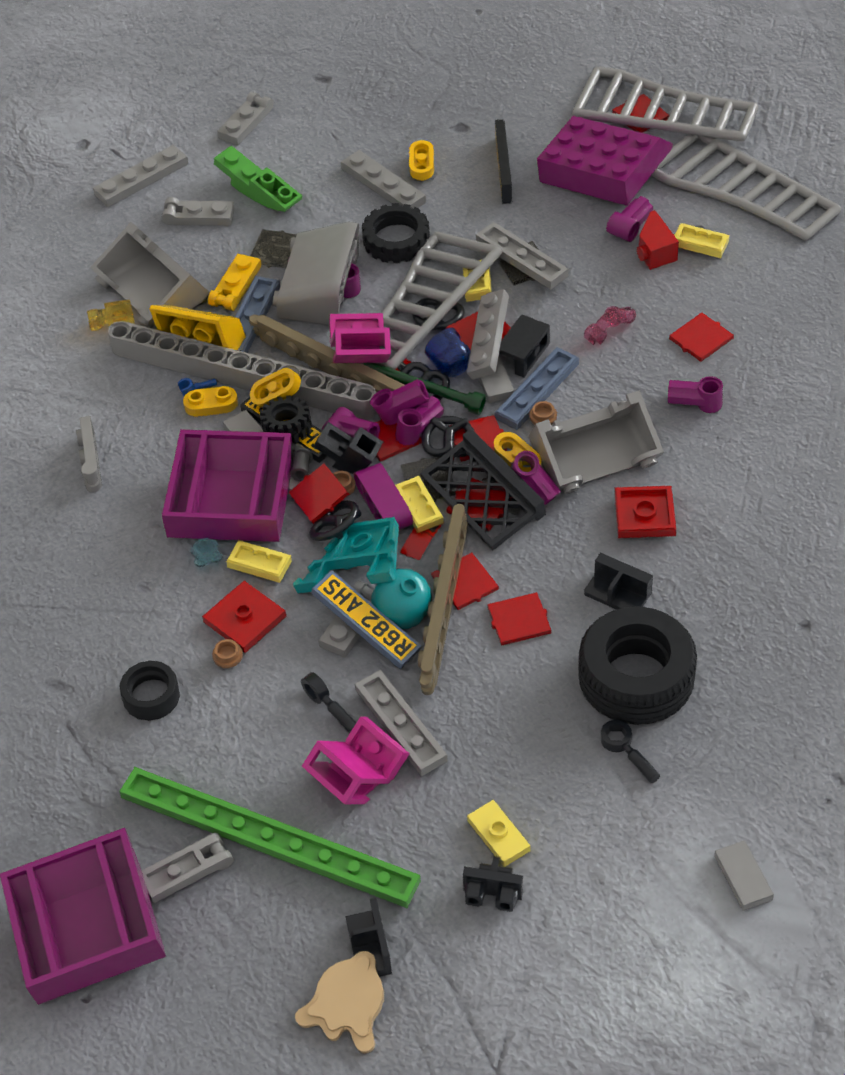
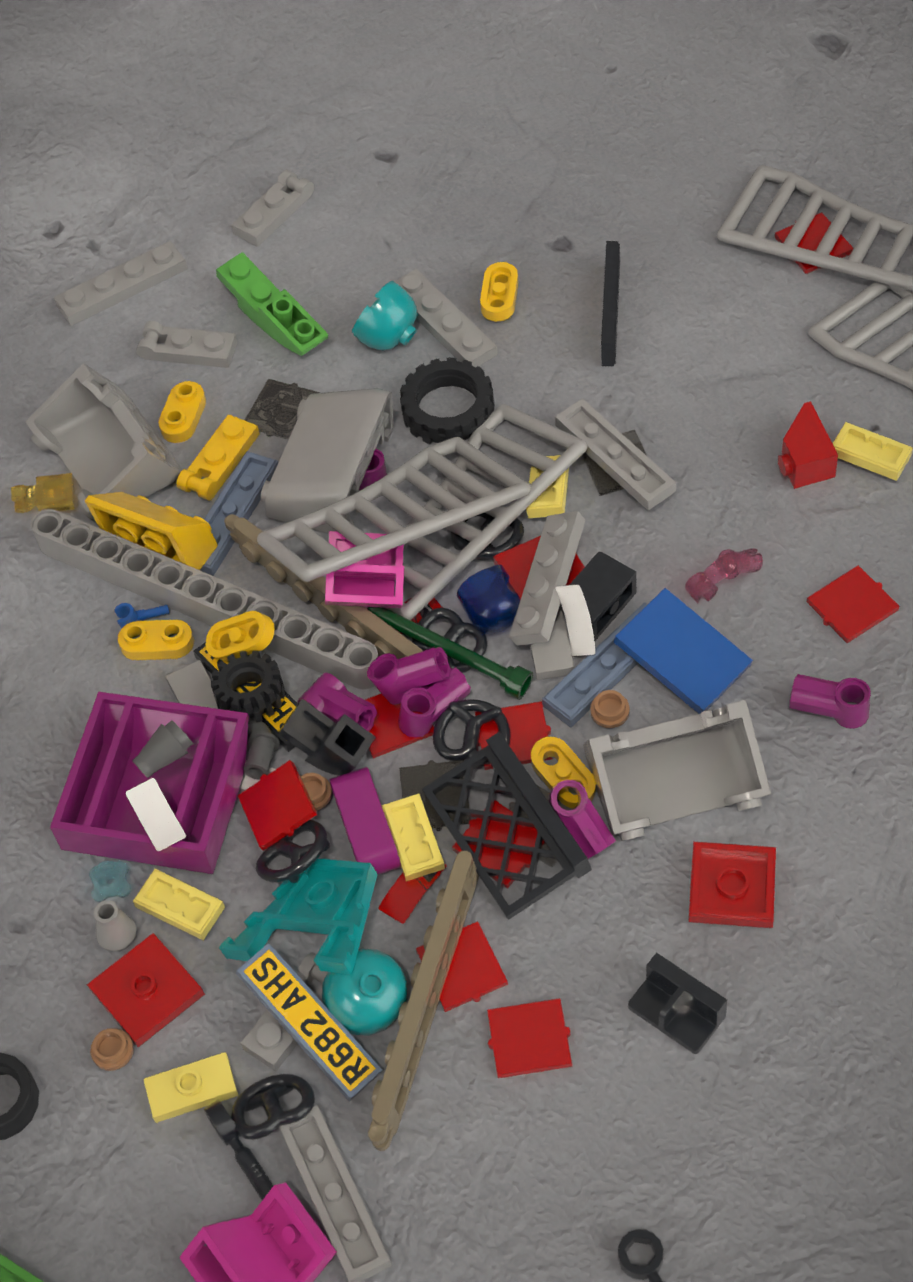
camera: 10 degrees right, 5 degrees up
(202, 255) = (185, 405): none -> yellow plate
(215, 579) = (113, 927): none -> light grey cone
(236, 500) = (155, 814): none -> white sticker
(237, 456) = (162, 749): none -> dark grey cone
(286, 671) = (190, 1087): none -> light yellow plate
(345, 182) = (388, 319): none -> teal cylinder
(345, 668) = (266, 1094): none -> black piece
(377, 308) = (396, 533): none -> light grey bar
(513, 358) = (577, 620): none -> white sticker
(588, 373) = (683, 651): none -> blue tile
(601, 160) = (747, 313): magenta slope -> none
(628, 222) = (771, 414): magenta piece -> none
(637, 632) = (698, 1091): black tyre -> none

